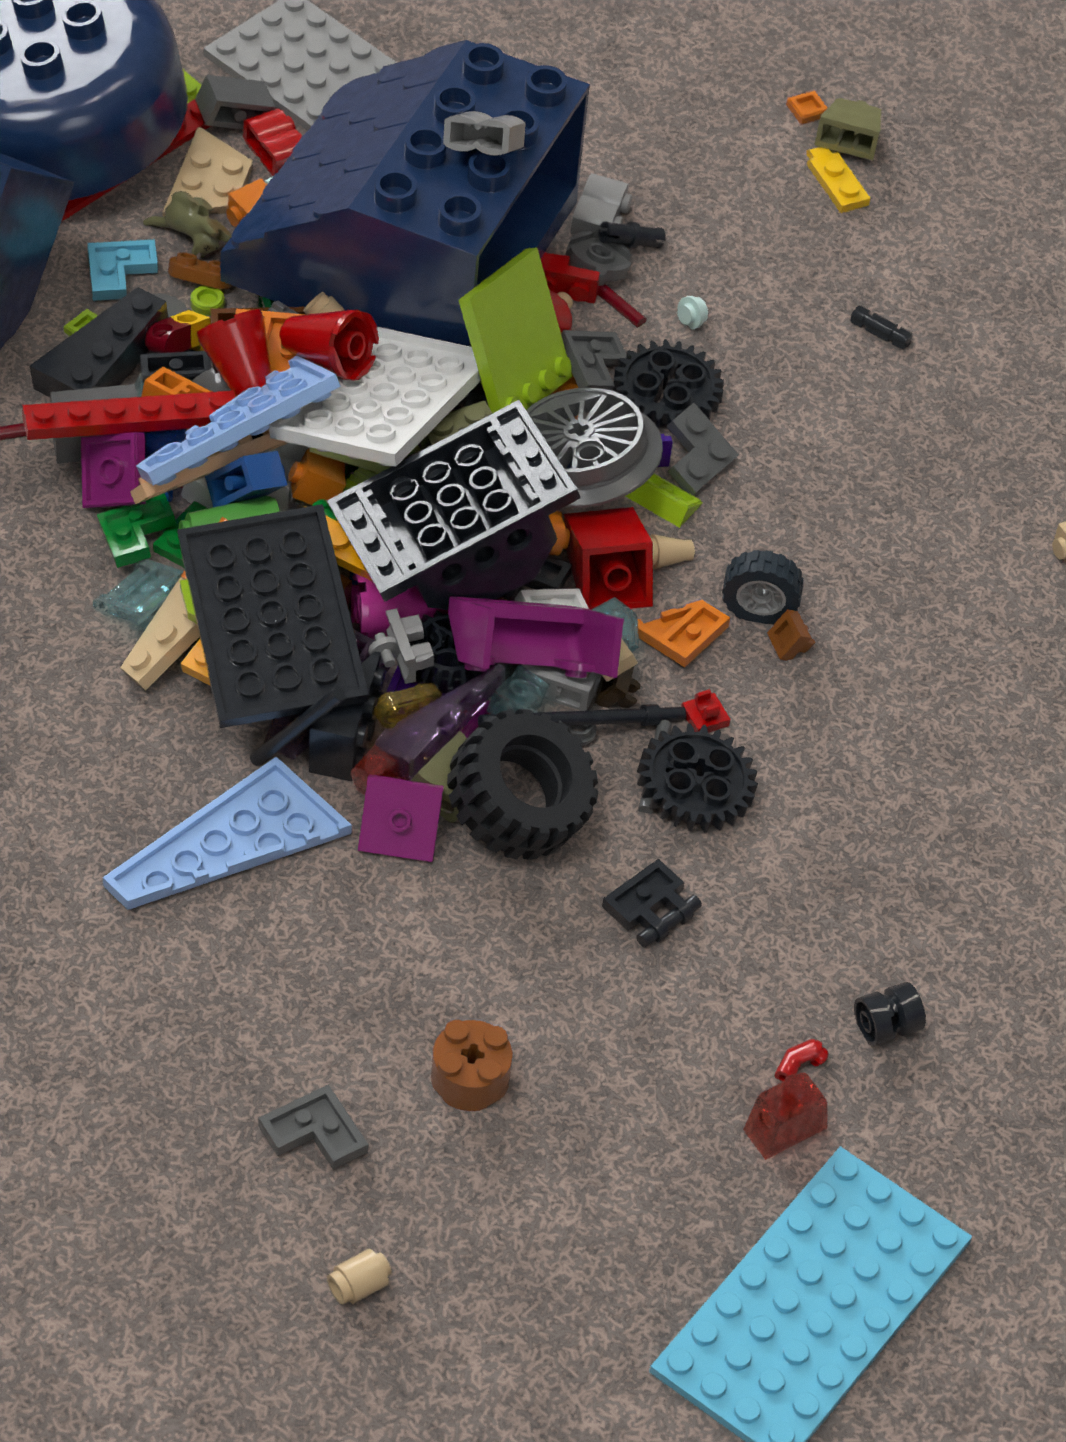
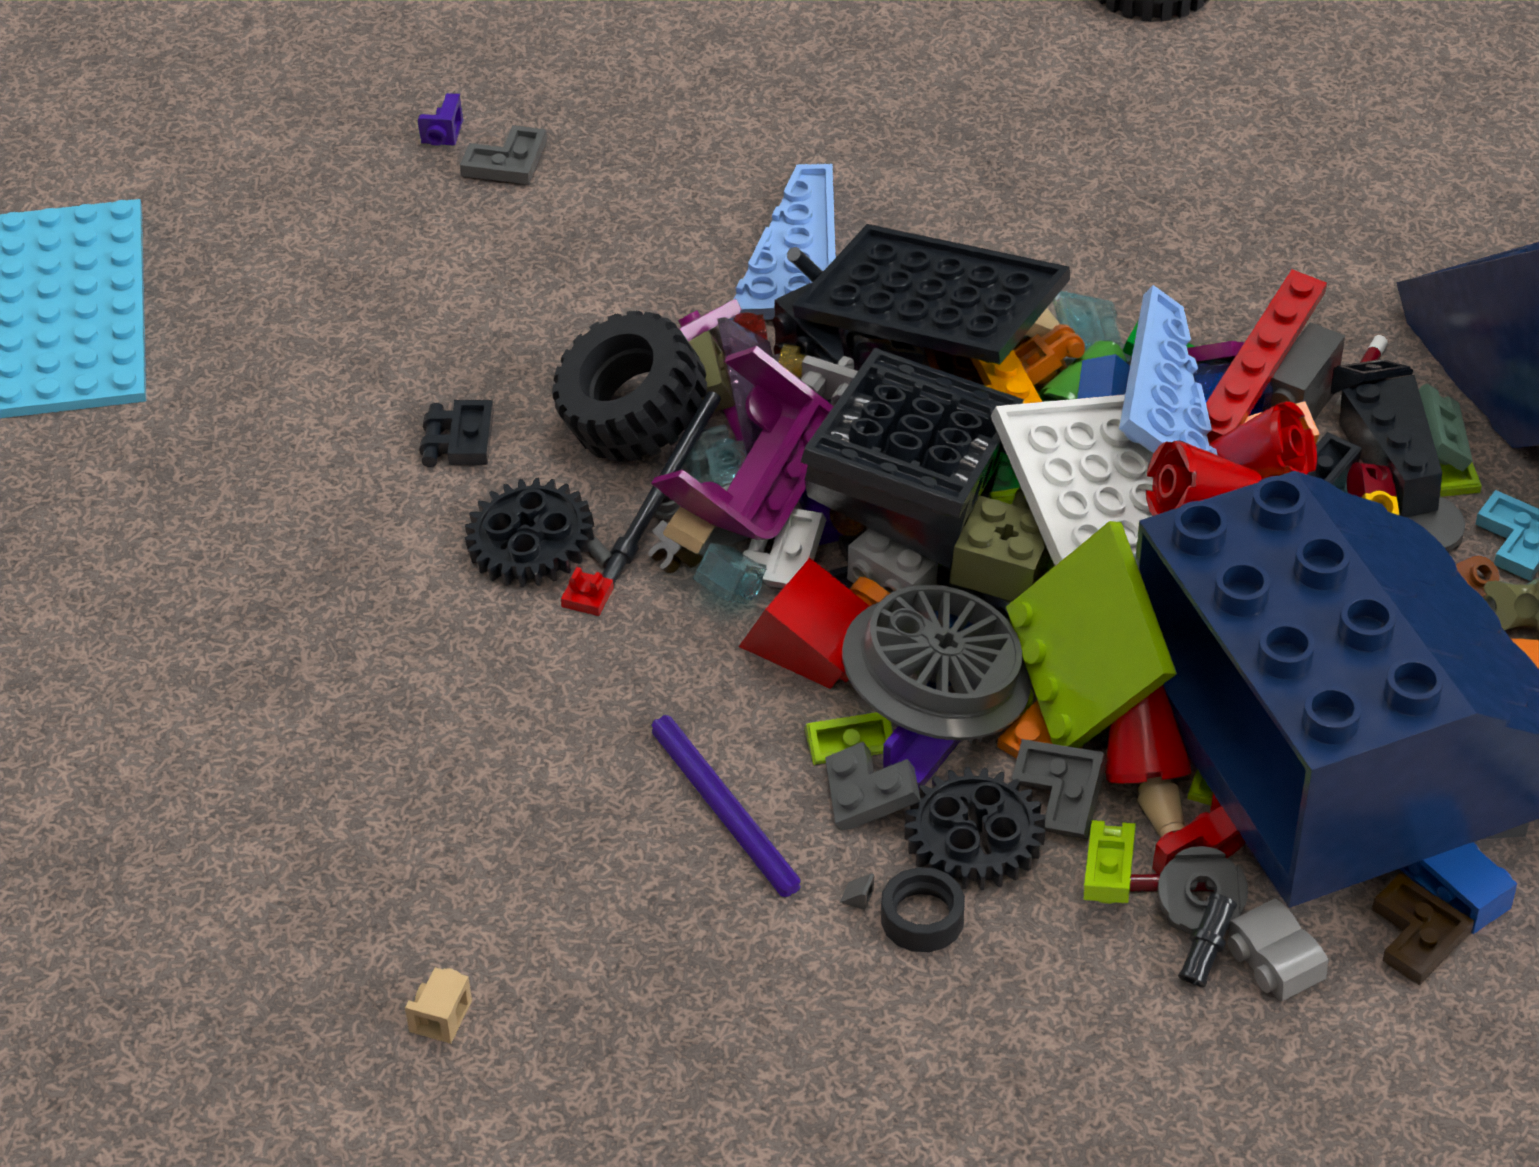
camera: 140 degrees right, 5 degrees down
(37, 389) = (1366, 372): none -> black slope
(51, 338) = (1446, 428): none -> sand green plate
(317, 1205) = (445, 125): none -> dark purple bracket
(359, 1277) = (376, 110): tan brick -> none
(471, 1064) = (450, 243): dark orange brick -> none
(482, 132) = (1281, 585): light grey brick -> none
(627, 301) = (1109, 862): none -> lime plate
(671, 550) = (781, 681): tan cone -> none
(684, 631) = (684, 633): orange wing -> none
(692, 311) = (1054, 920): light aqua plate -> none
(751, 392) = (922, 936): none -> black tyre
(762, 586) = (650, 685): black wheel -> none
(771, 415) = (859, 892): none -> dark grey piece
(790, 635) = (591, 696): dark orange tile -> none
(792, 498) = (726, 806): none -> dark purple axle
(792, 1110) = (195, 357): clear red torso -> none
(797, 1055) = (235, 426): red arm -> none
(881, 327) = (880, 1080): black axle -> none
(889, 1013) = (193, 485): black wheel -> none

